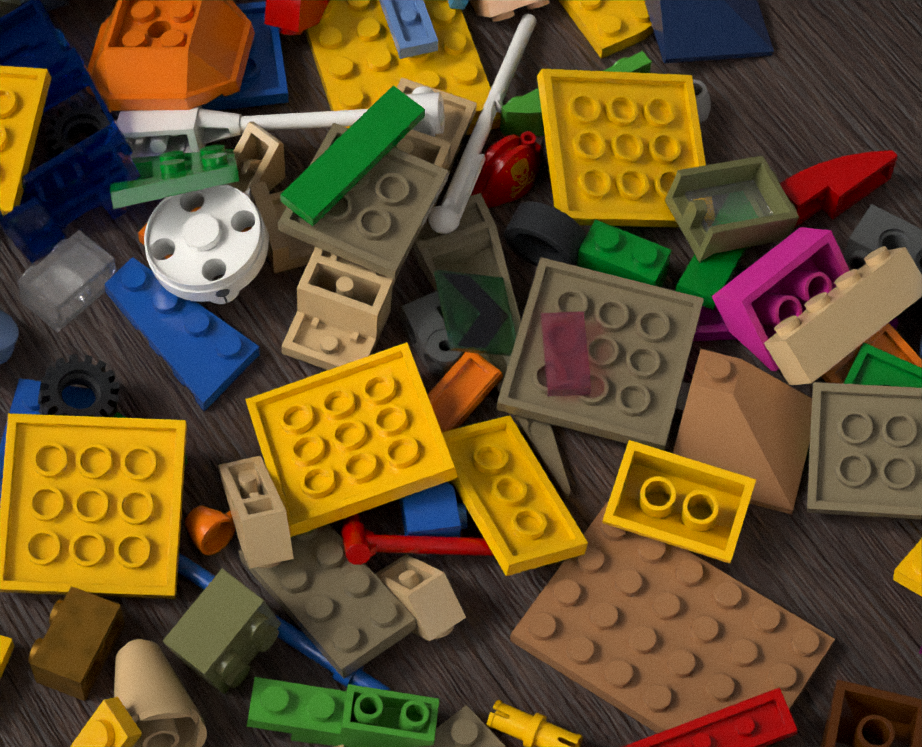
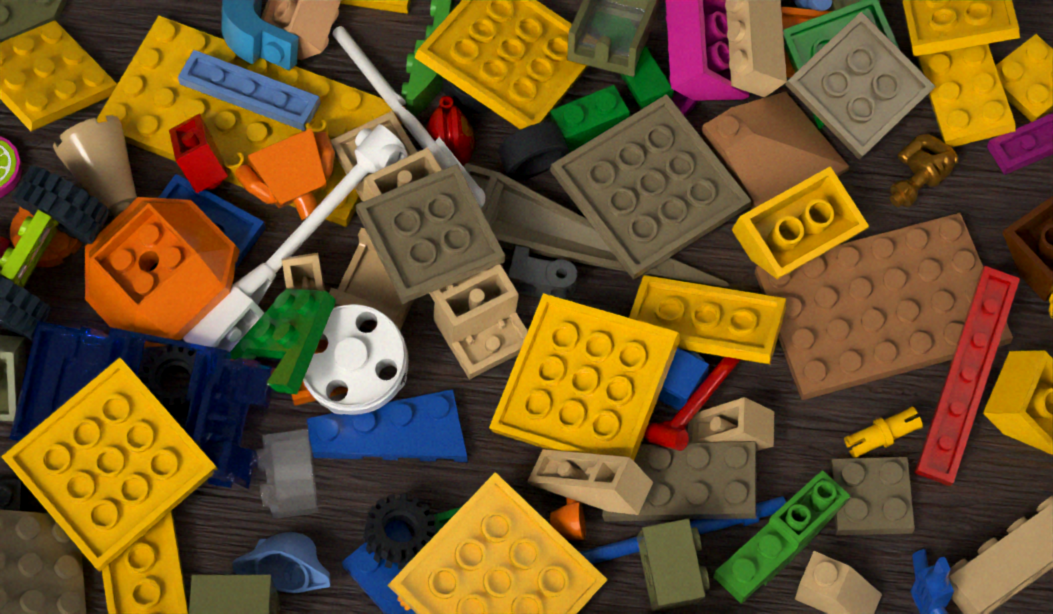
camera: 45 degrees left, 5 degrees up
(348, 68) = (288, 170): none -> orange torso
(352, 155) = (397, 212): green tile -> none
(463, 390) = (598, 283): orange tile -> none
(476, 313) = (560, 234): clear green piece -> none
(565, 354) = (638, 205): clear pink tile -> none
(855, 579) = (926, 168): none -> pearl gold piece

